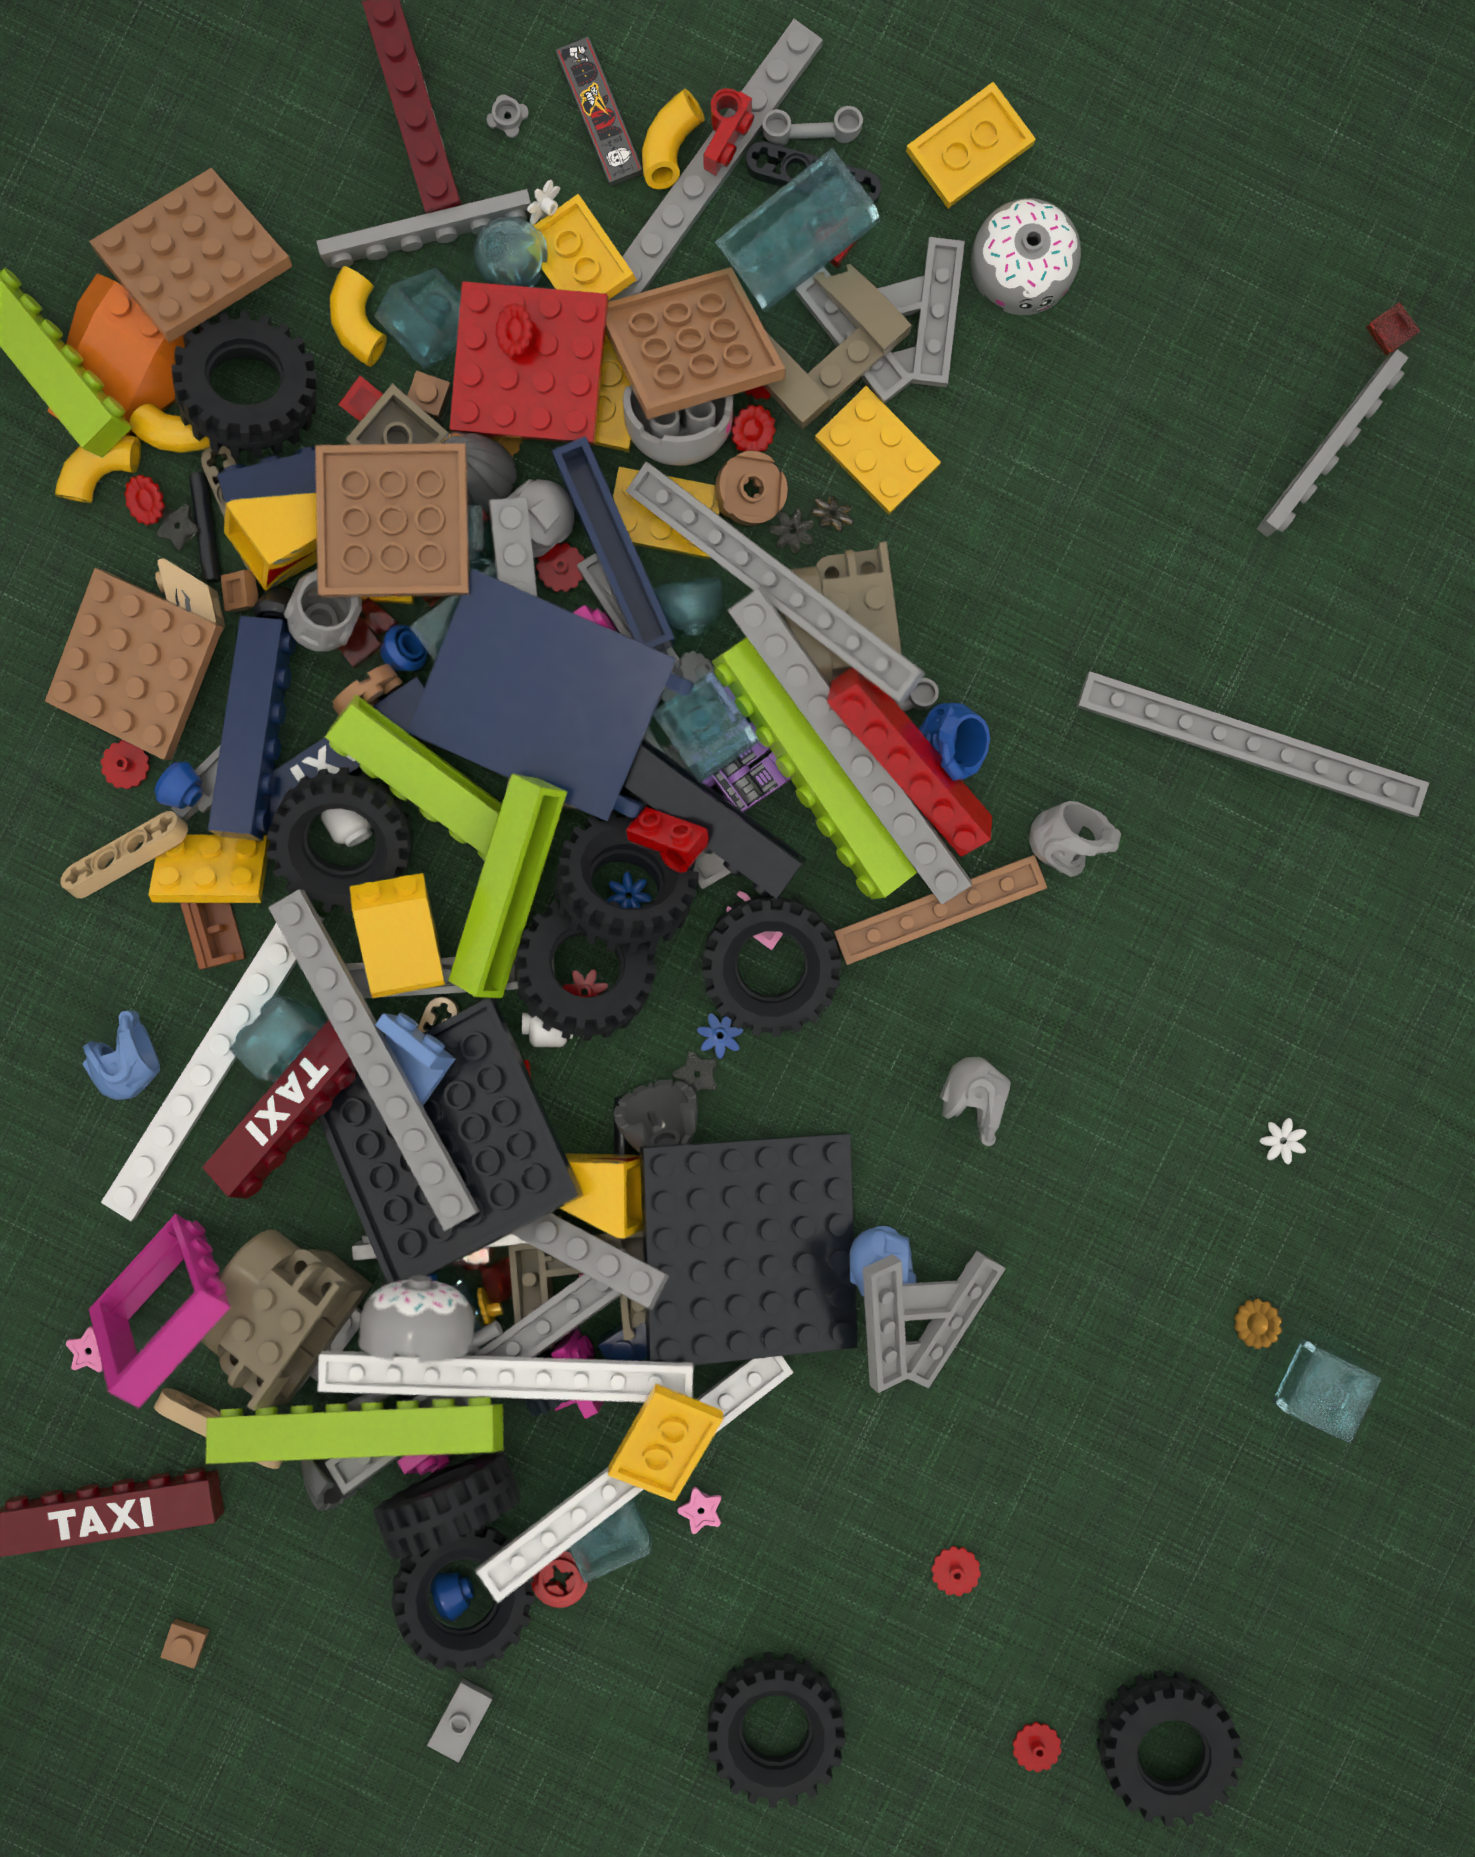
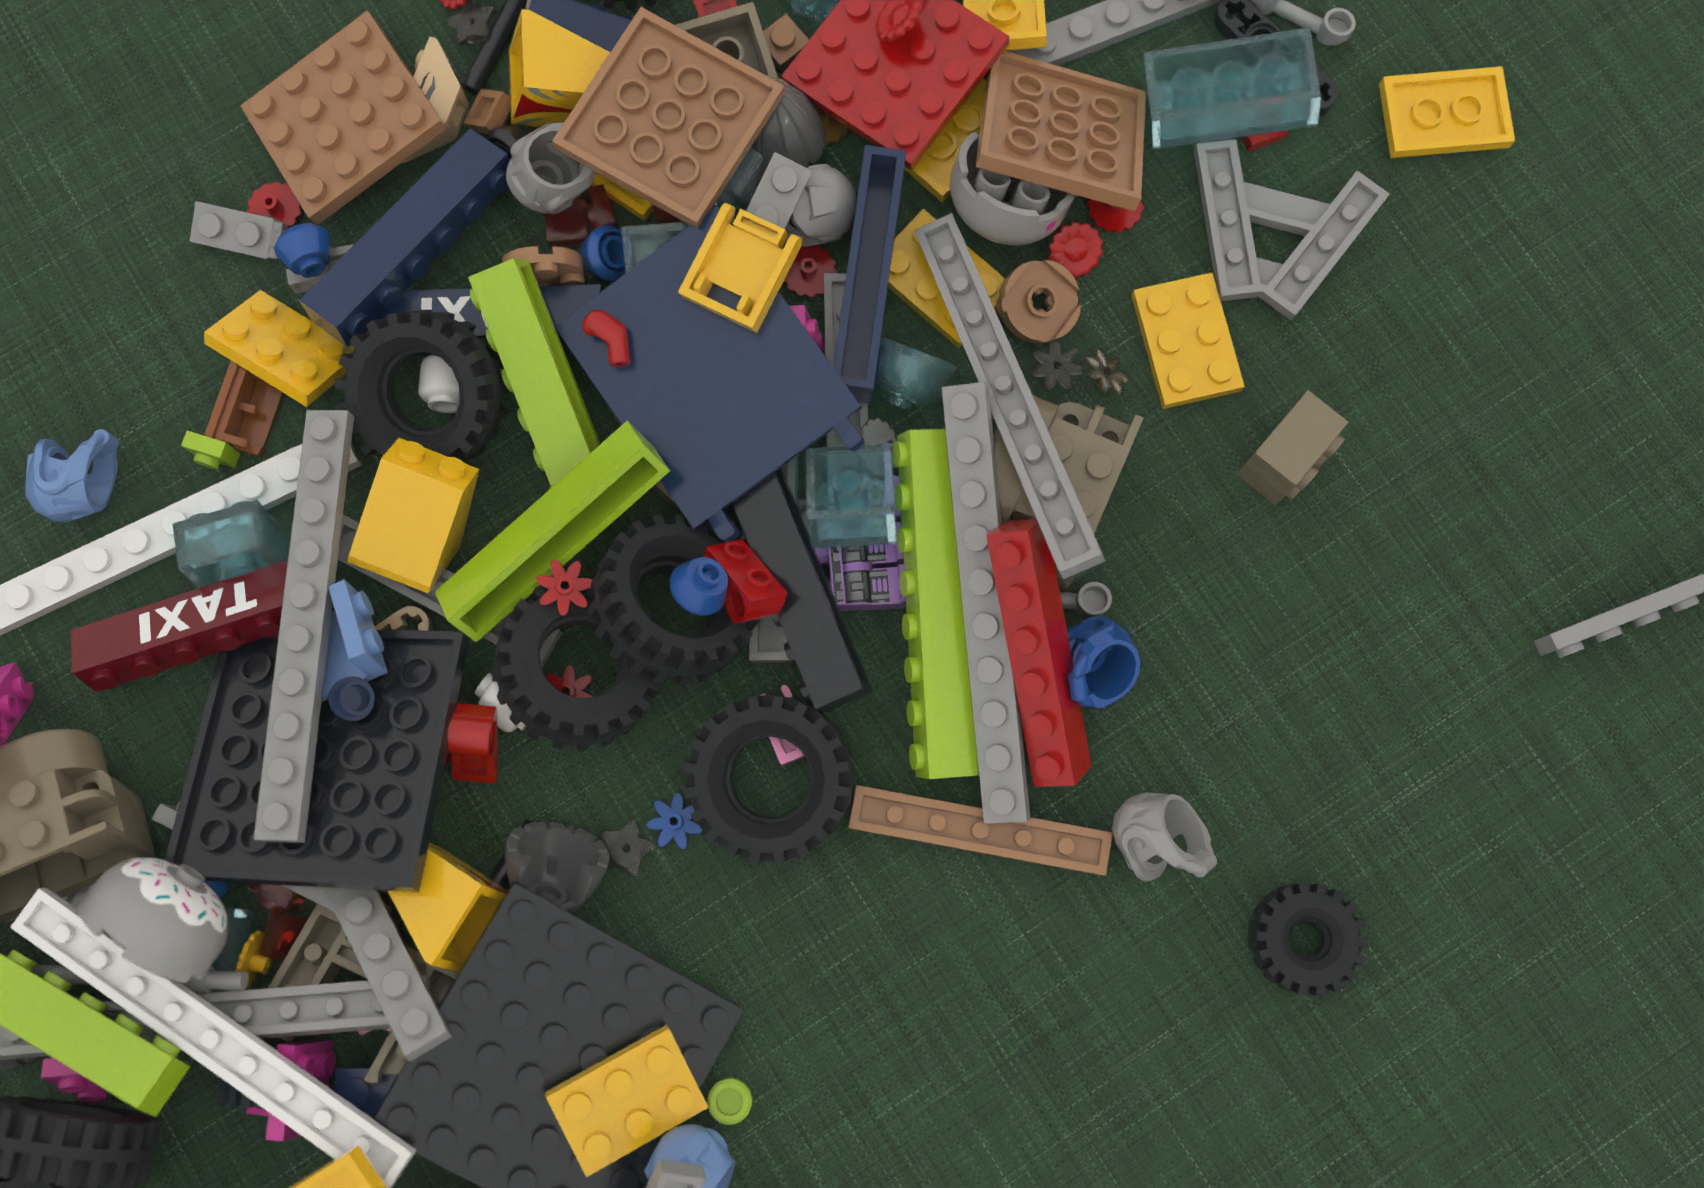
camera: 35 degrees right, 10 degrees down
(112, 799) = (235, 230): none -> light grey hinge
(158, 836) = (212, 286): tan beam -> none
(208, 978) = (210, 451): none -> lime plate
(444, 1093) = (351, 698): none -> dark blue plate
(454, 712) = (612, 332): none -> red arm
(521, 601) = (742, 261): none -> yellow container
(535, 922) = (564, 596): none -> red plant
(546, 1068) = (474, 743): none -> red plate
(628, 886) = (675, 614): blue plant -> none
(641, 862) = (699, 586): none -> blue cone
(810, 1243) = (626, 1100): none -> yellow plate
(877, 333) = (1254, 225): dark tan wedge -> none
(878, 1199) = (730, 1101): none -> lime tile
(977, 1085) = (909, 1040): light grey helmet -> none
(1005, 492) = (1294, 450): none -> dark tan brick
(1025, 256) = (1443, 242): cylinder -> none
(1238, 840) = (1339, 946): none -> black tyre
(1252, 744) = (1413, 862): light grey plate -> none

